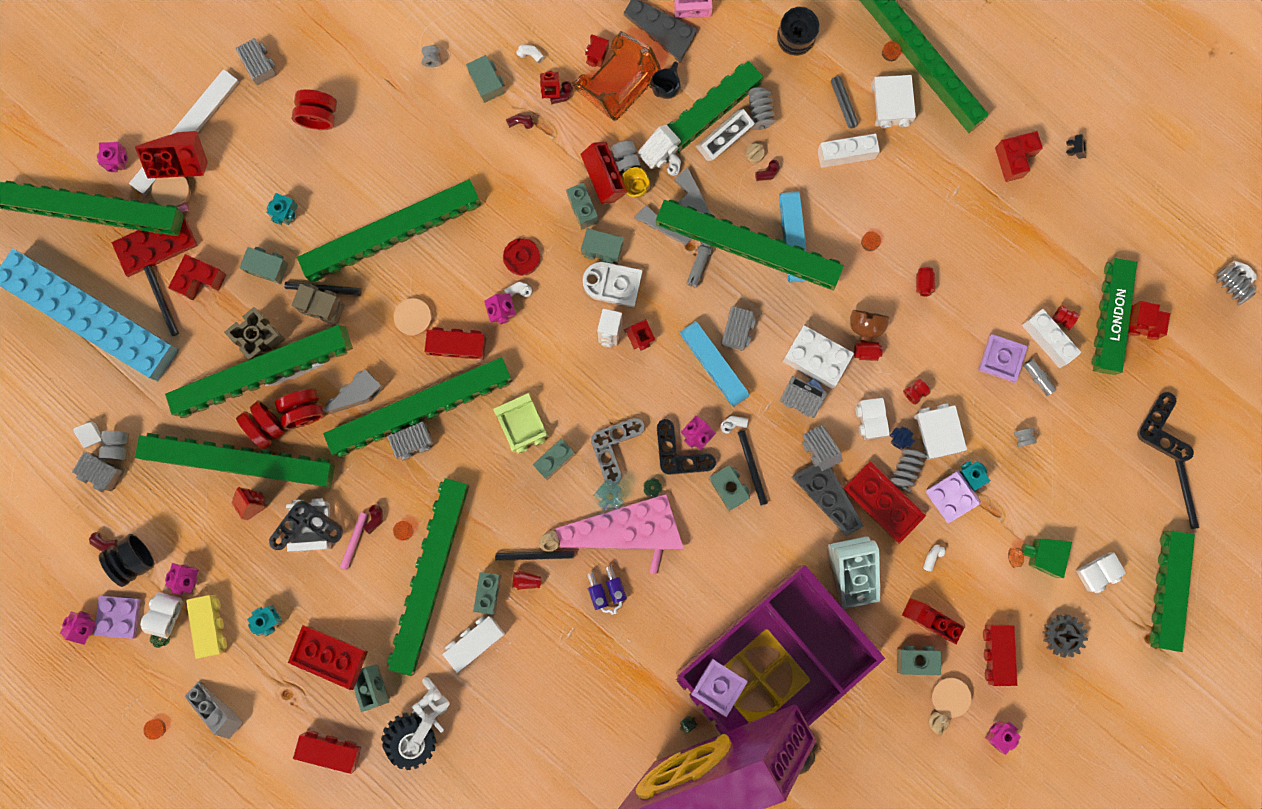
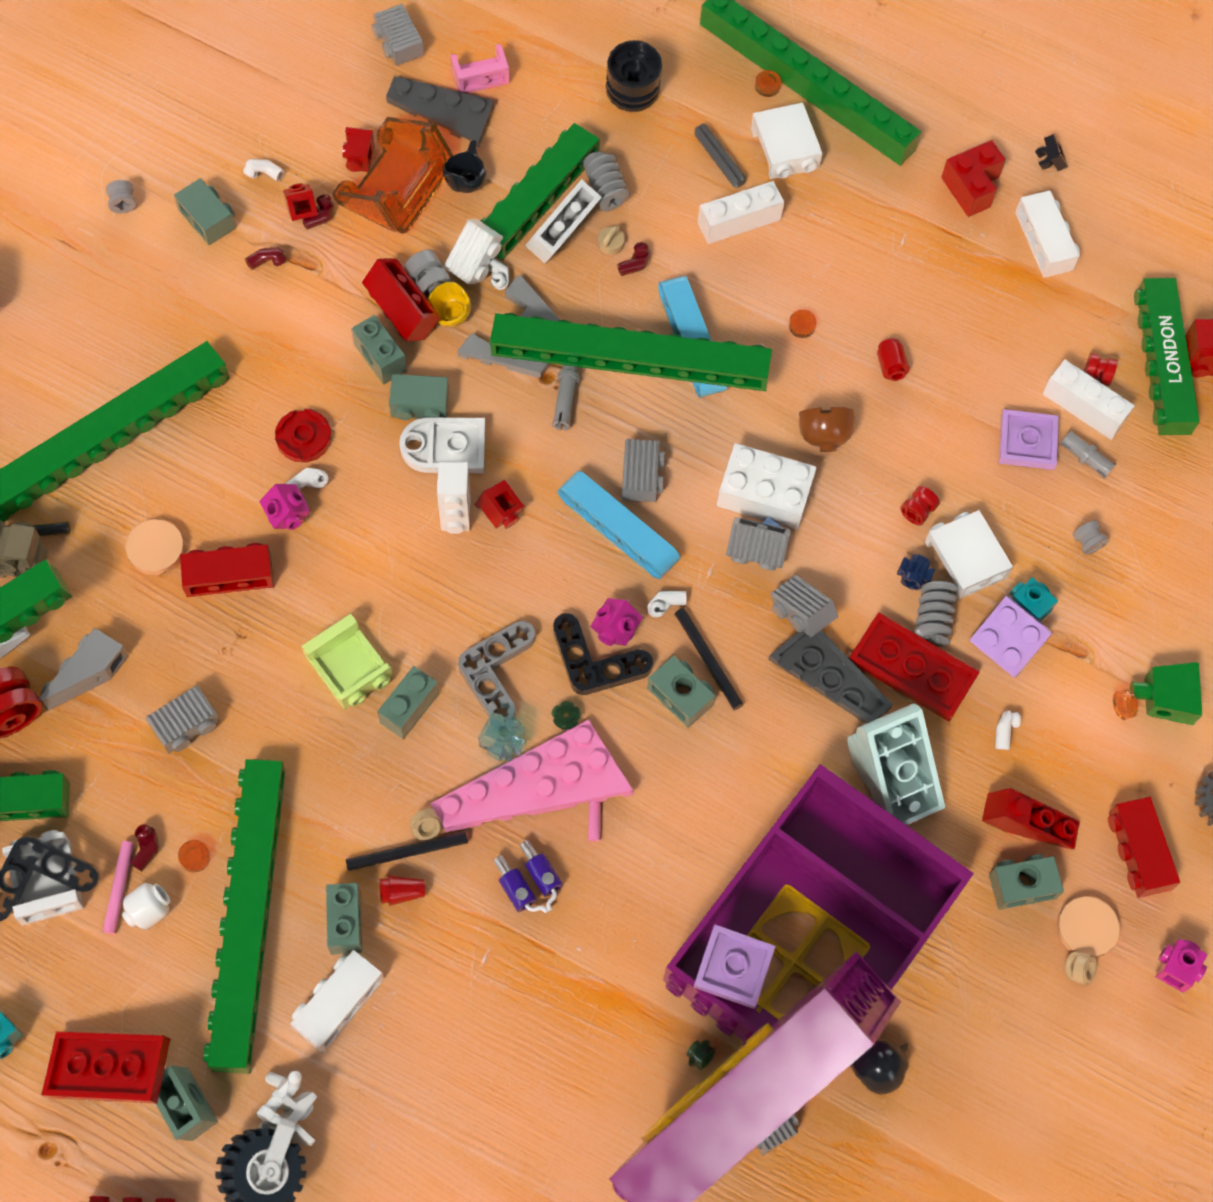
camera: 15 degrees left, 15 degrees down
(368, 558) = (146, 906): none -> white head
(418, 407) = (192, 664): green brick -> none
(868, 351) = (836, 465): red brick -> none
(873, 419) = (867, 555): white brick -> none
(1057, 208) = (1047, 233): none -> white brick

